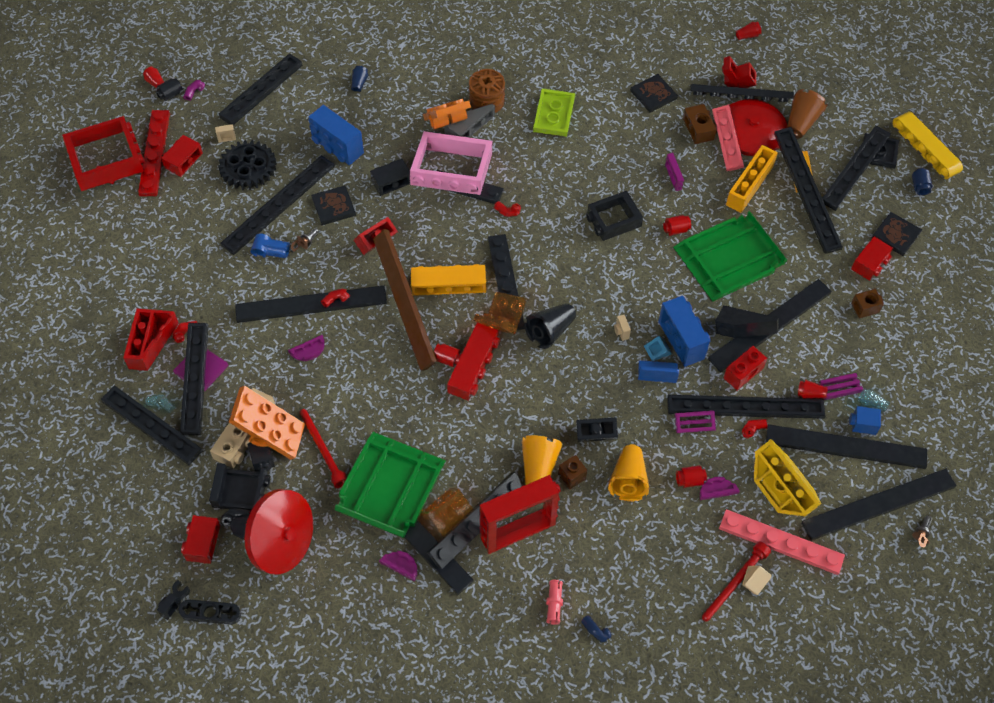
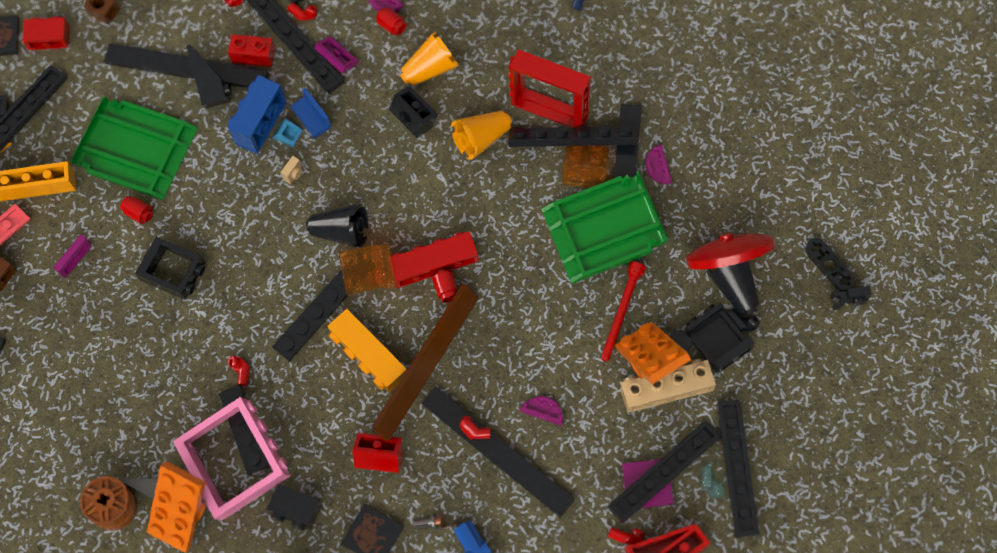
camera: 125 degrees left, 10 degrees up
(201, 539) = (787, 323): red brick -> none
(554, 112) = (80, 424): lime plate -> none
(554, 602) = (584, 36): coral pin -> none
(572, 472) = (466, 102): reddish brown brick -> none

